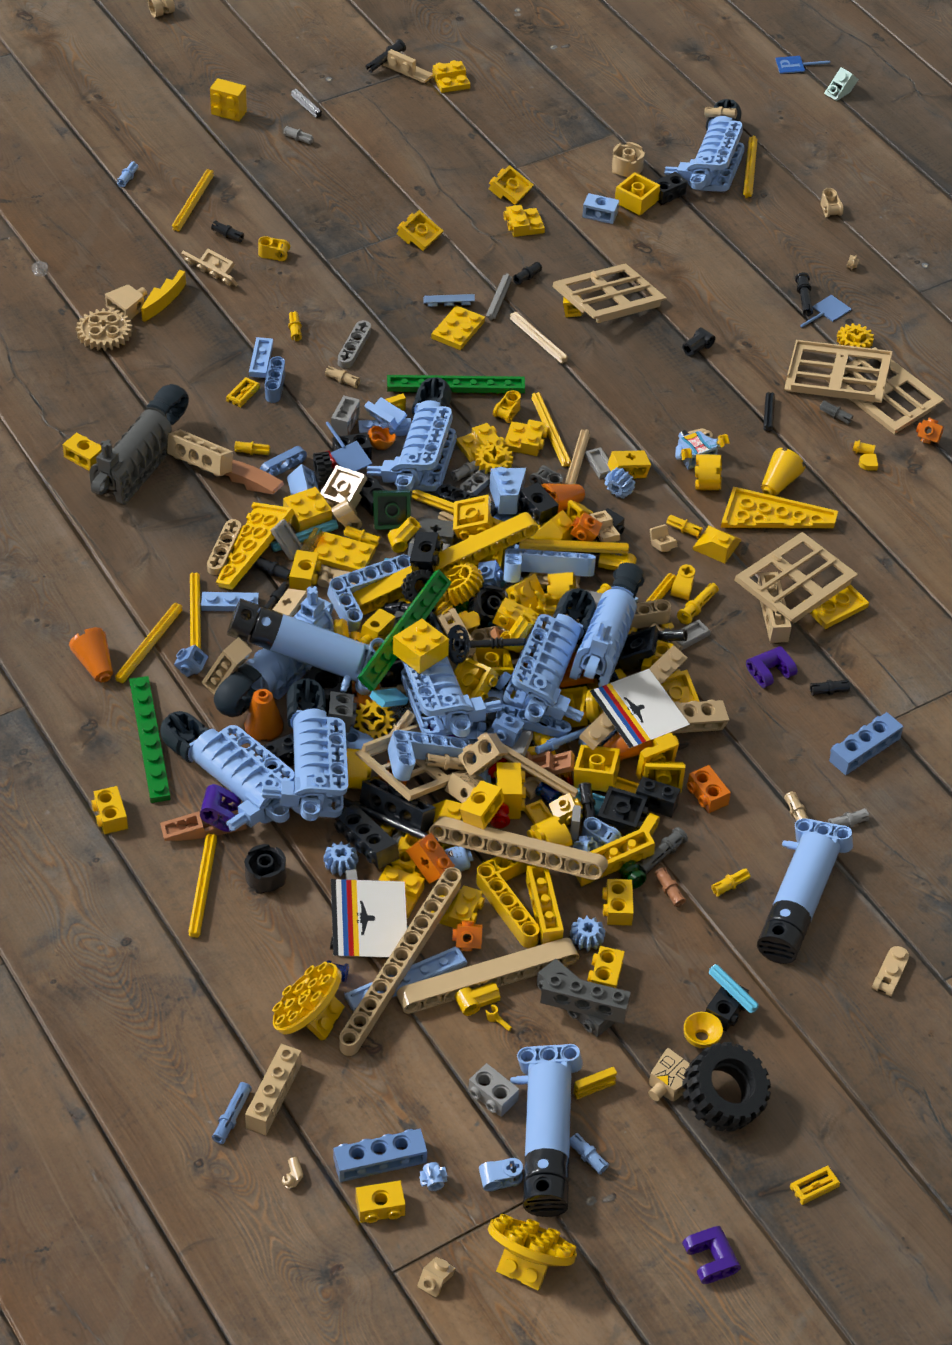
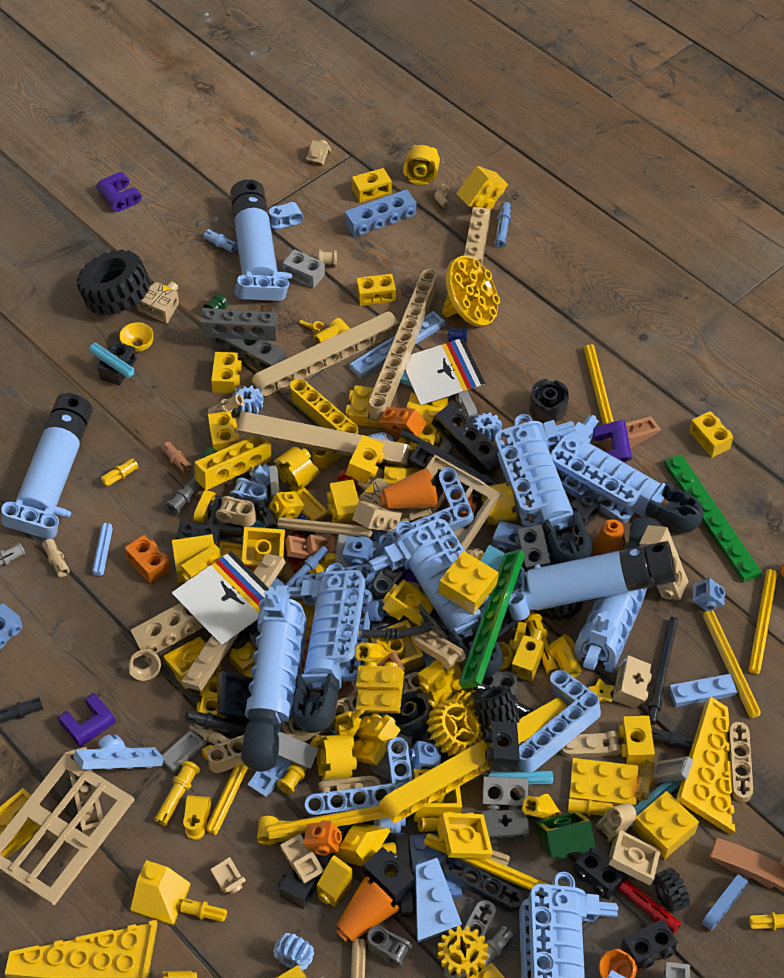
camera: 170 degrees right, 5 degrees up
(246, 1140) = (482, 188): none -> yellow brick
(301, 479) = (690, 871): light blue panel -> none
(308, 1210) = (421, 164): none -> yellow brick
(351, 455) = (644, 915): medium blue piece -> none
(414, 1040) = (376, 289): none -> yellow brick
(433, 1176) = (336, 204): light blue gear -> none
(446, 759) = (410, 492): none -> orange cone
(461, 1101) = (328, 257): none -> tan bush
(471, 942) = (346, 372): orange brick -> none
(528, 1251) = (254, 156): yellow bracket -> none
(544, 904) = (286, 401): yellow brick -> none
(595, 1083) = (223, 286): yellow tile -> none
(607, 1058) = (217, 301): none -> dark green wheel
(612, 921) = (227, 404): none -> tan pin
(617, 795) = (236, 512): none -> tan piece
(726, 696) = (146, 673): none -> tan piece
(746, 619) = (116, 755): none -> light blue plate
(751, 812) = (102, 549): none -> light blue axle
(818, 1192) = (40, 253): yellow tile -> none

